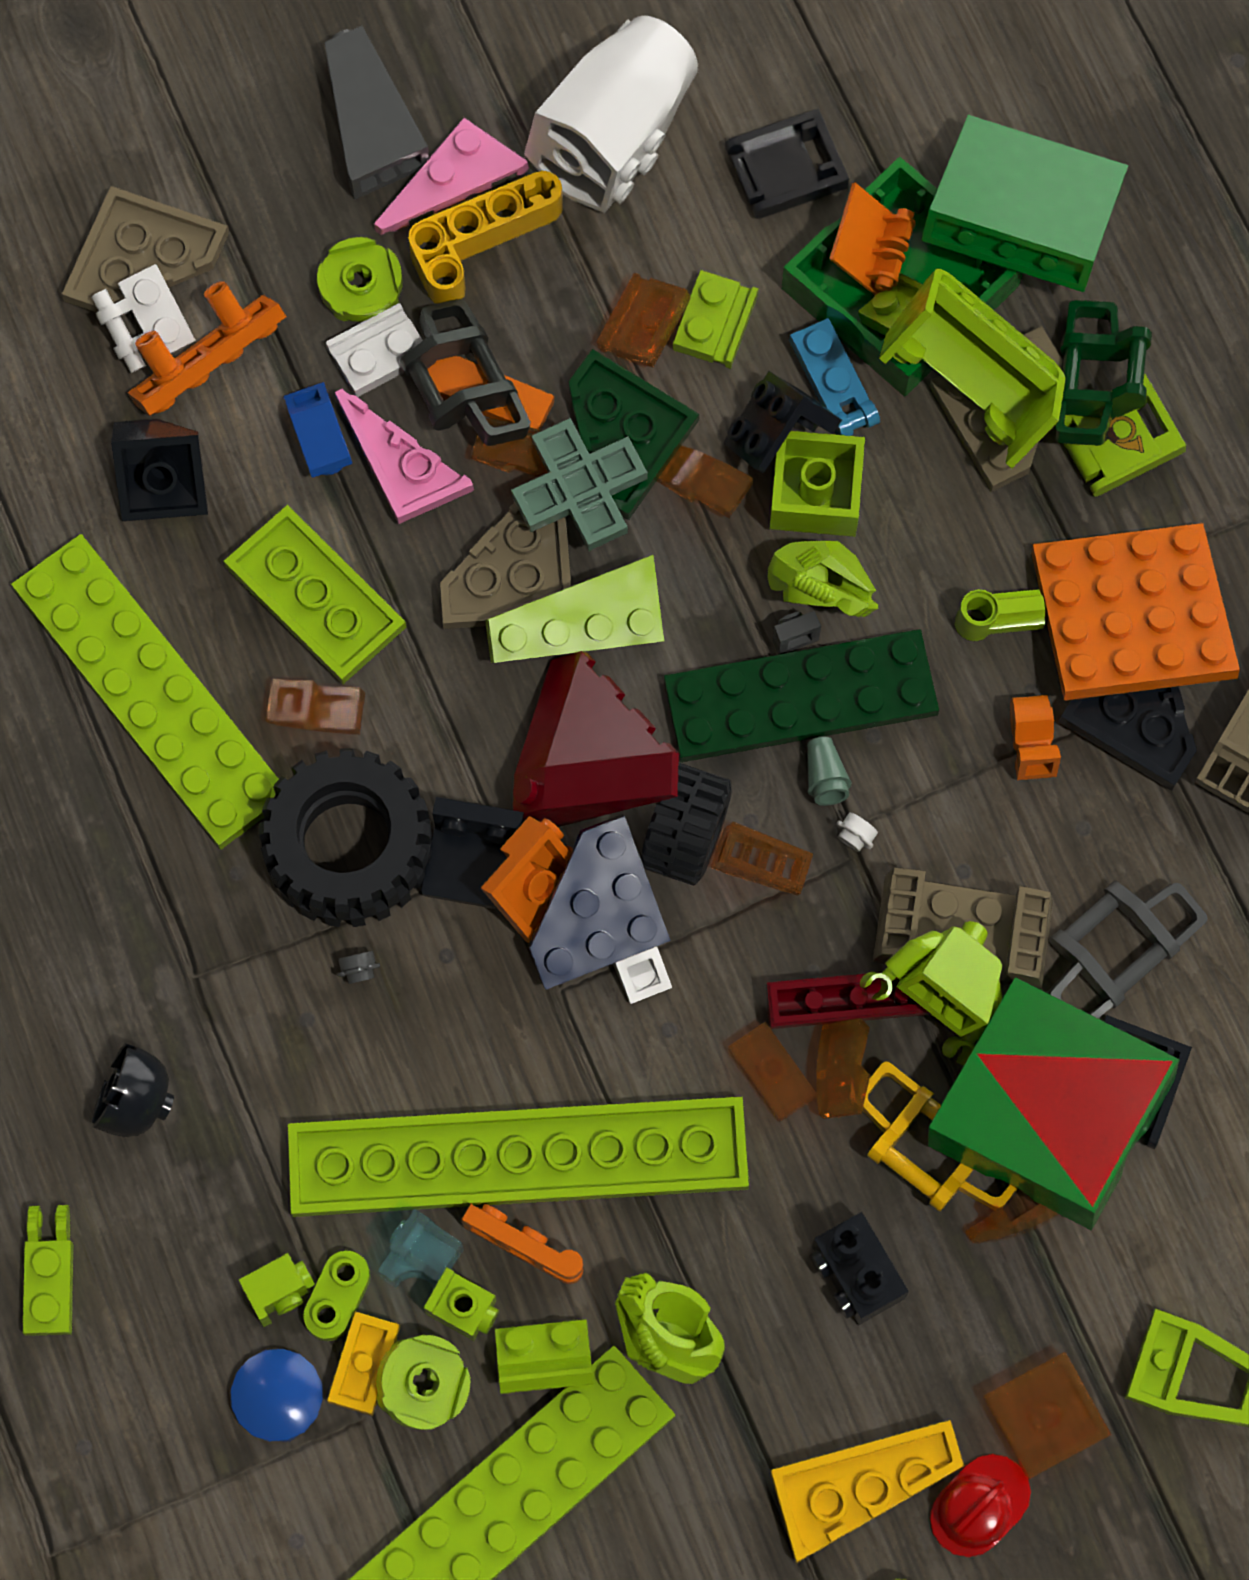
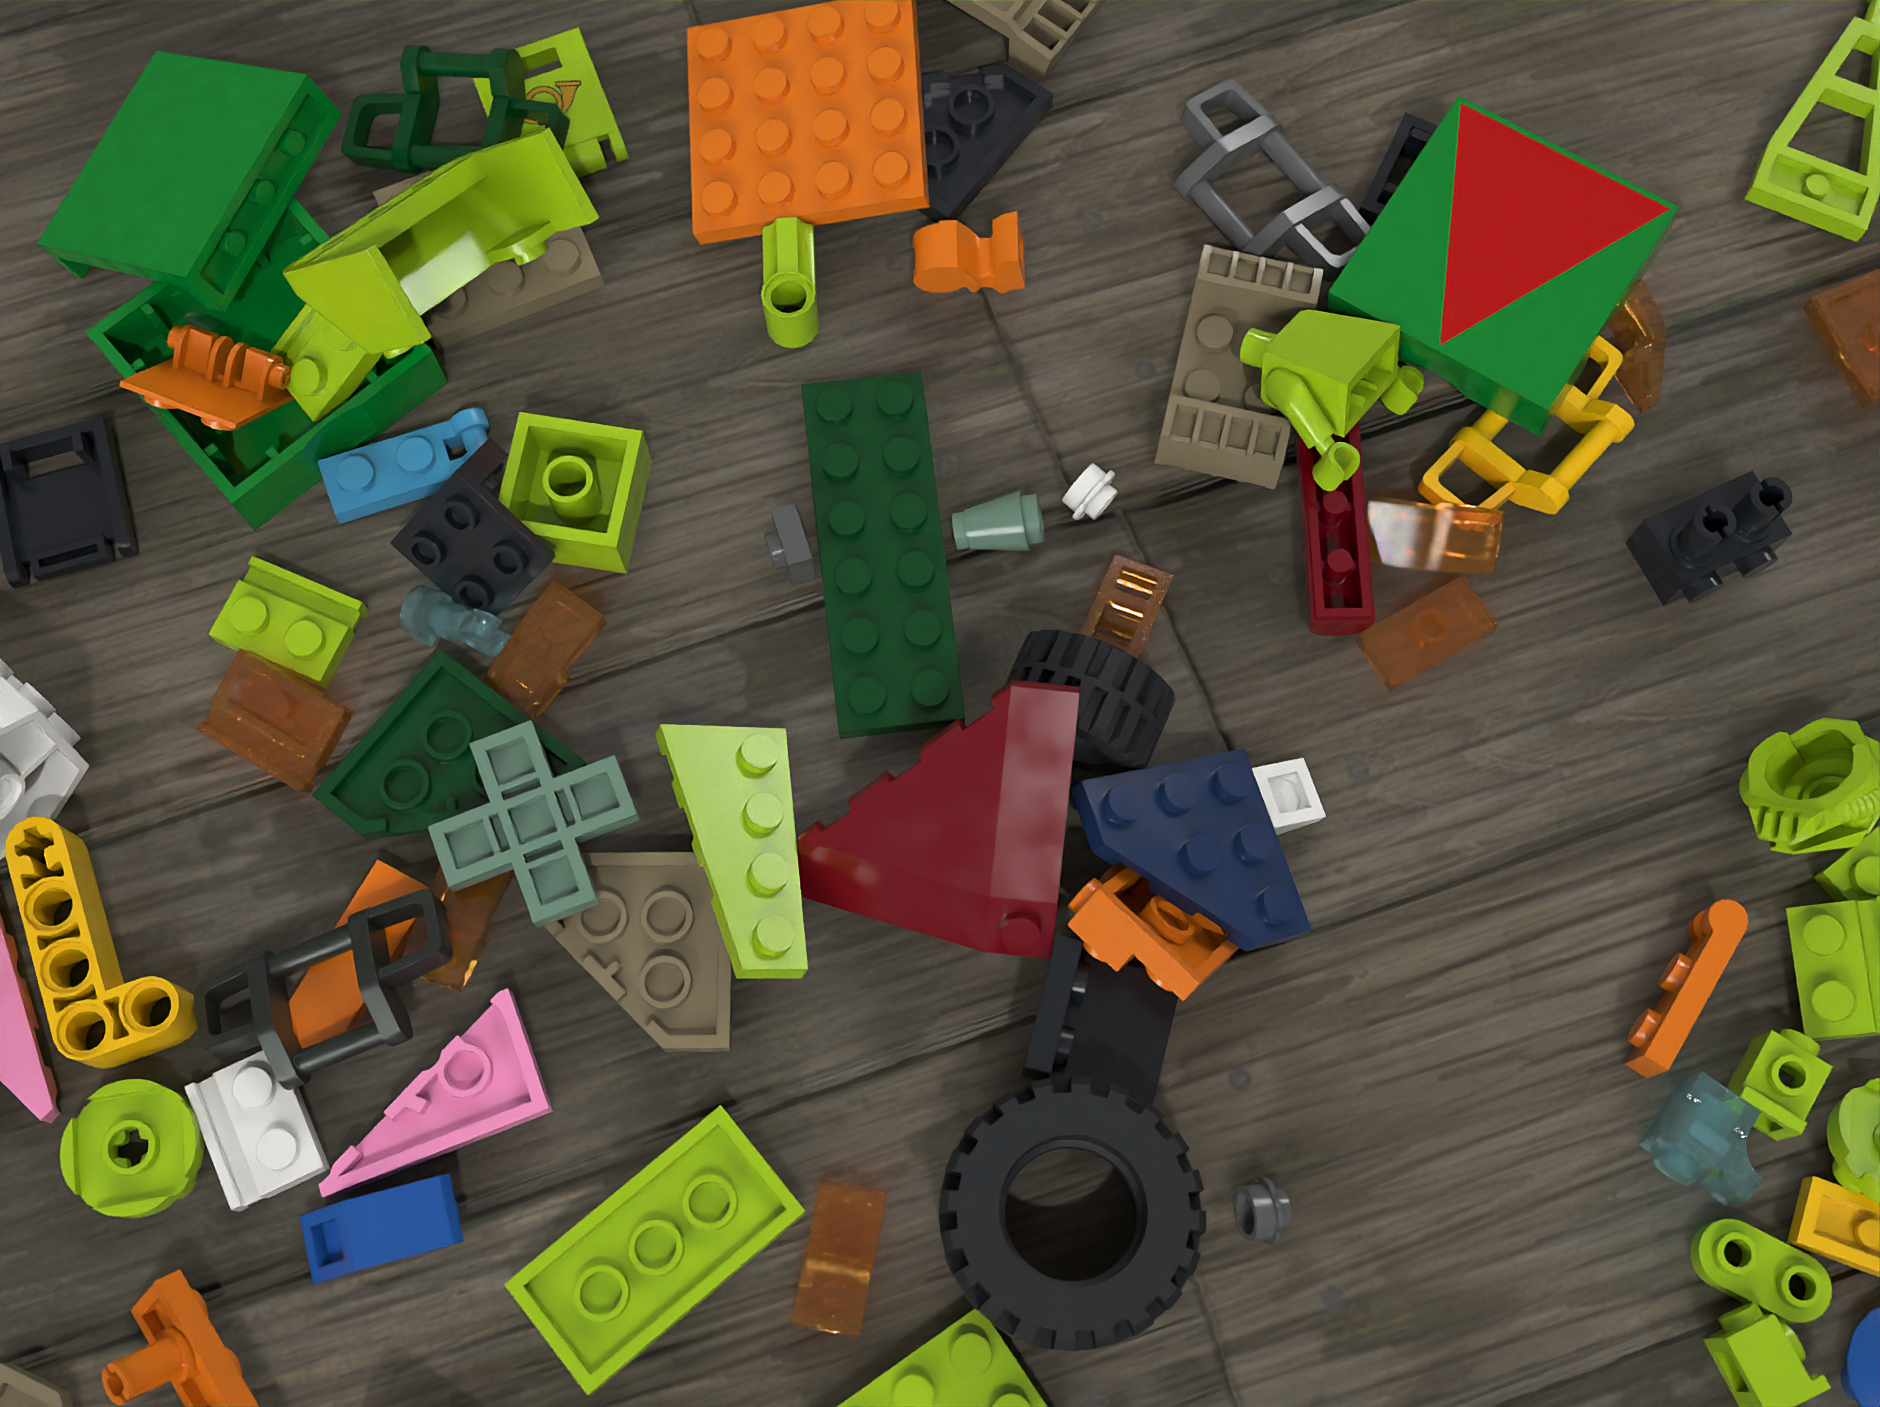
camera: 85 degrees left, 0 degrees up
(517, 1156) = (1555, 1006): lime plate -> none
(722, 410) = (433, 615): none -> clear light blue piece
(822, 576) = (716, 507): lime helmet -> none

